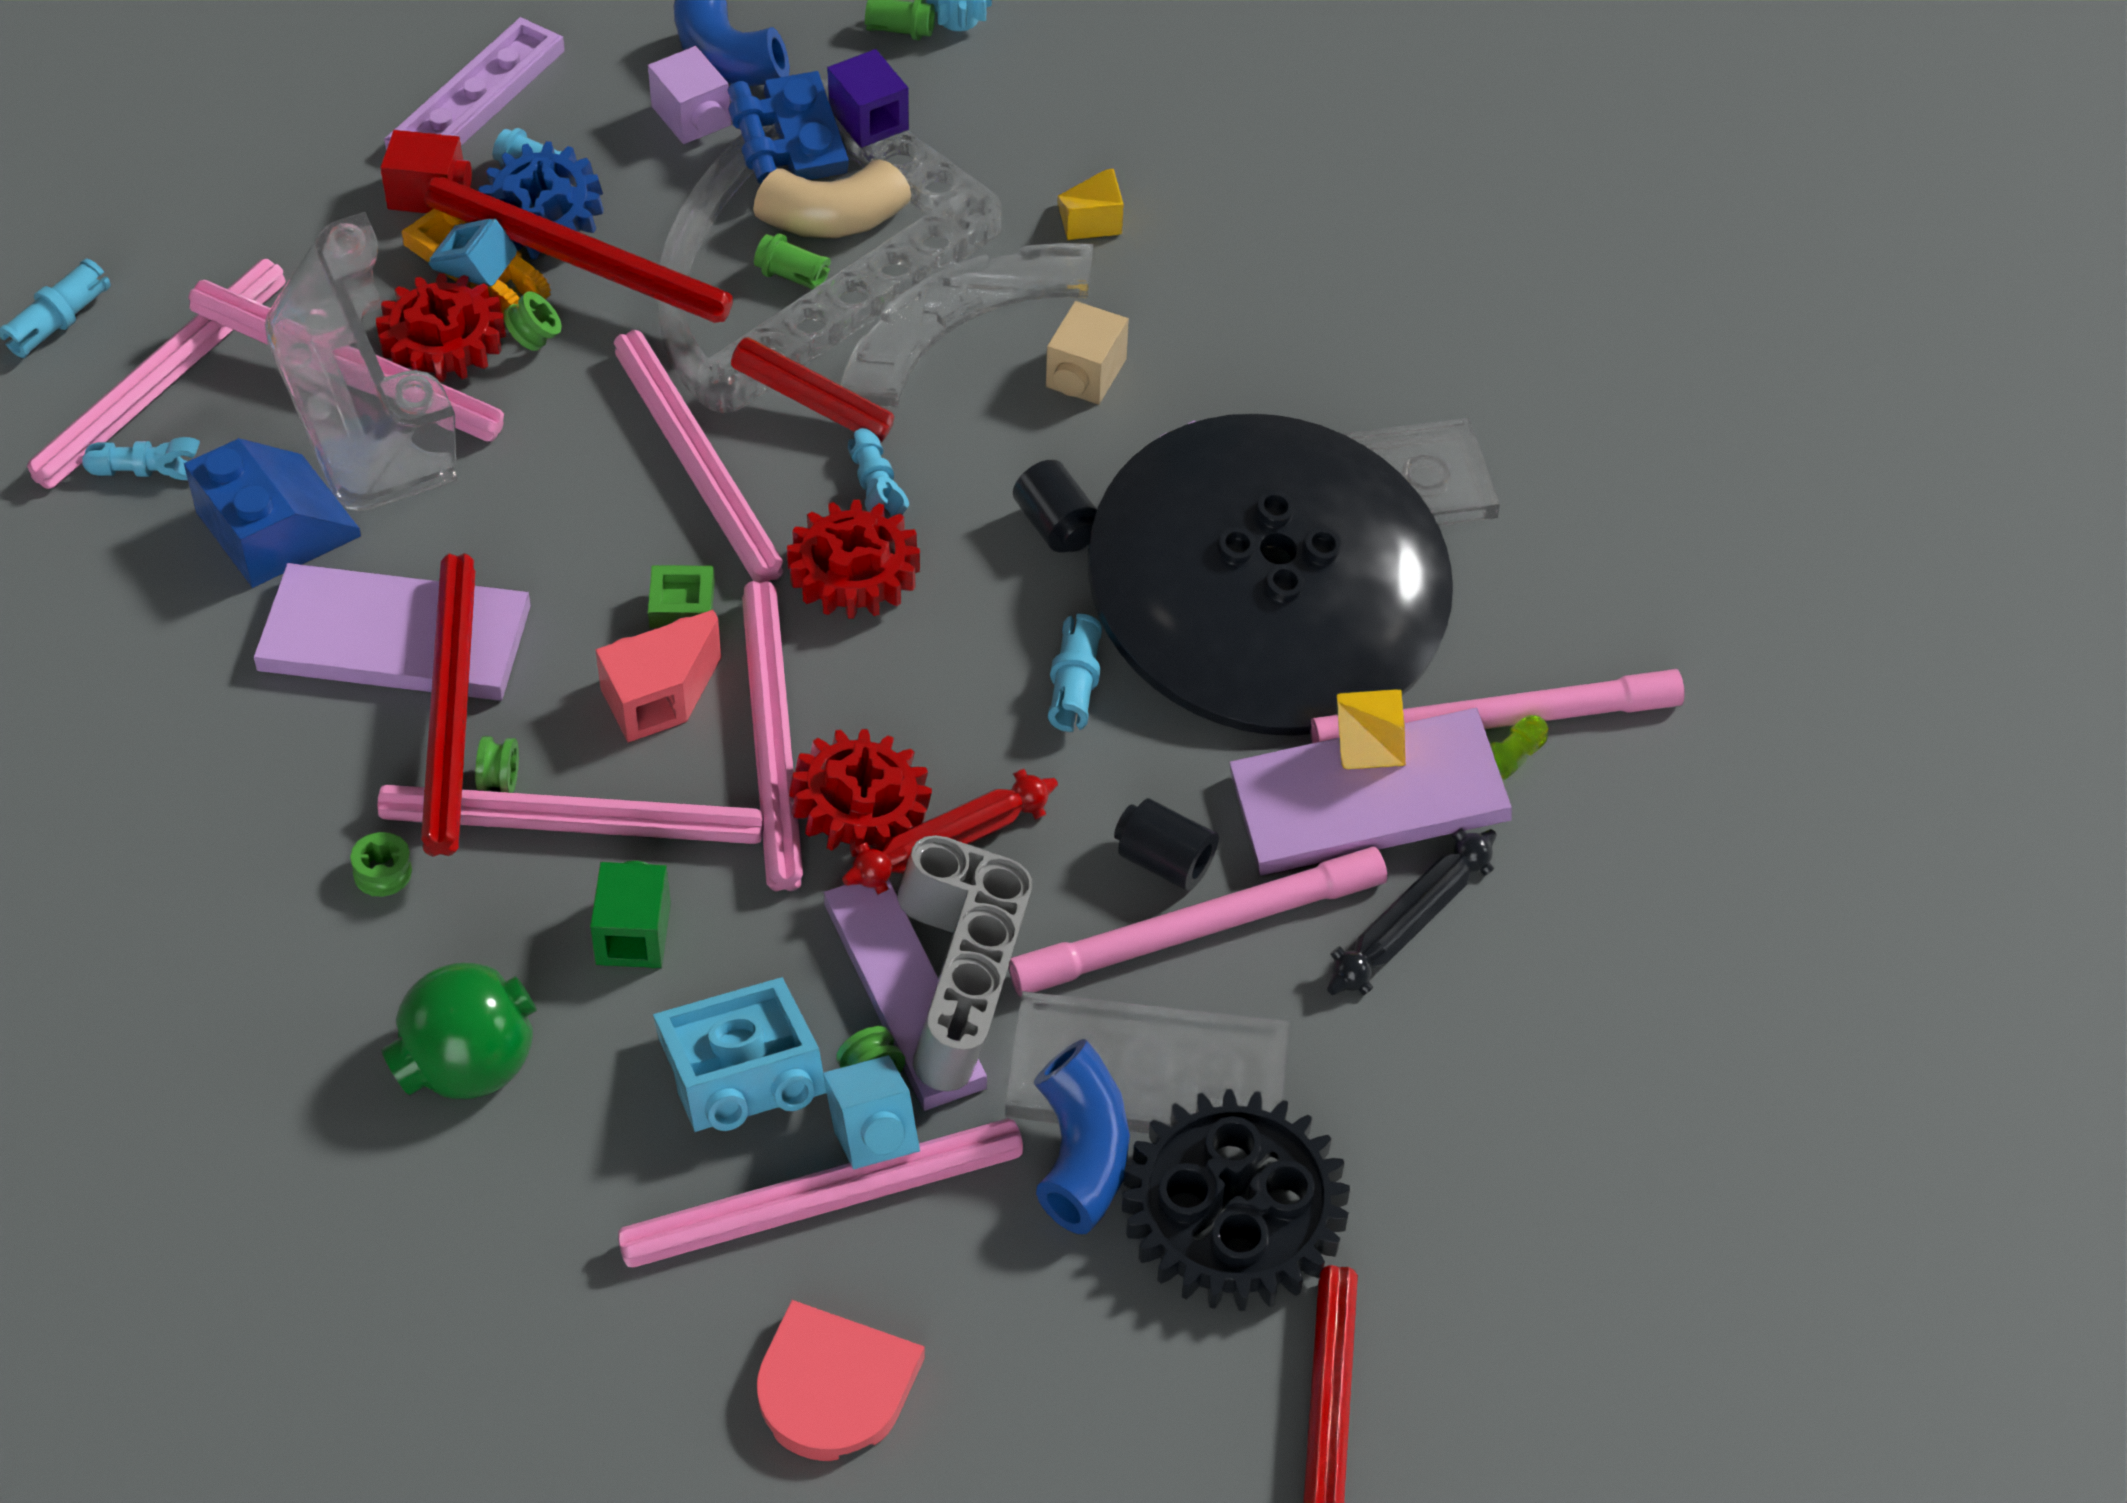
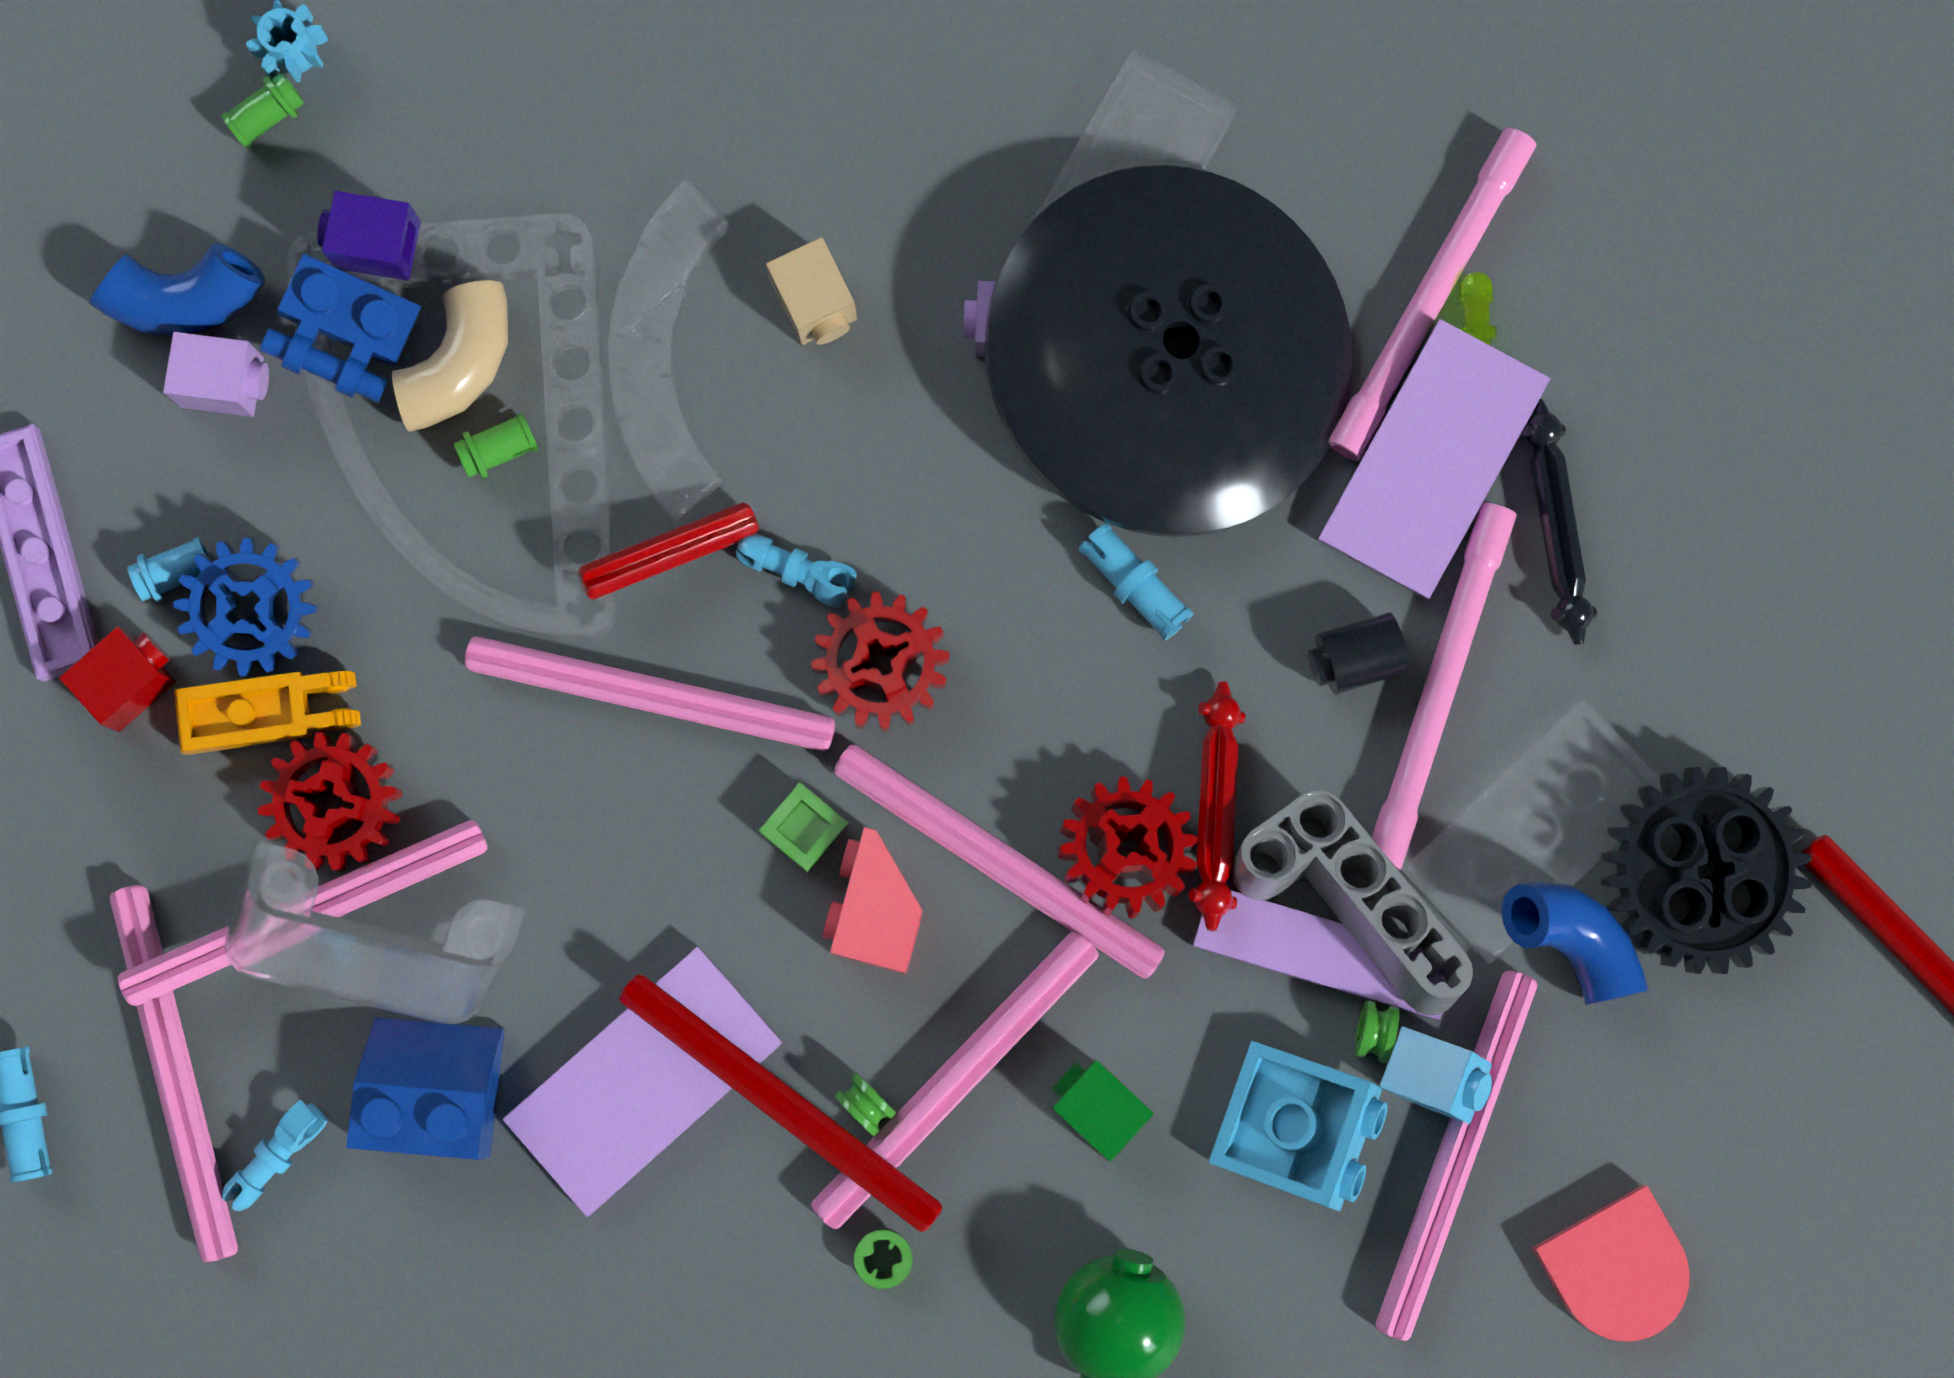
camera: 50 degrees left, 30 degrees up
(475, 250) = (271, 715): dark azure slope -> none
(532, 321) = (387, 719): bright green bush -> none
(581, 250) = (344, 627): red axle -> none
(1055, 506) = (960, 456): black brick -> none
(1092, 207) = (639, 142): yellow slope -> none
(1371, 729) = (1407, 422): yellow slope -> none

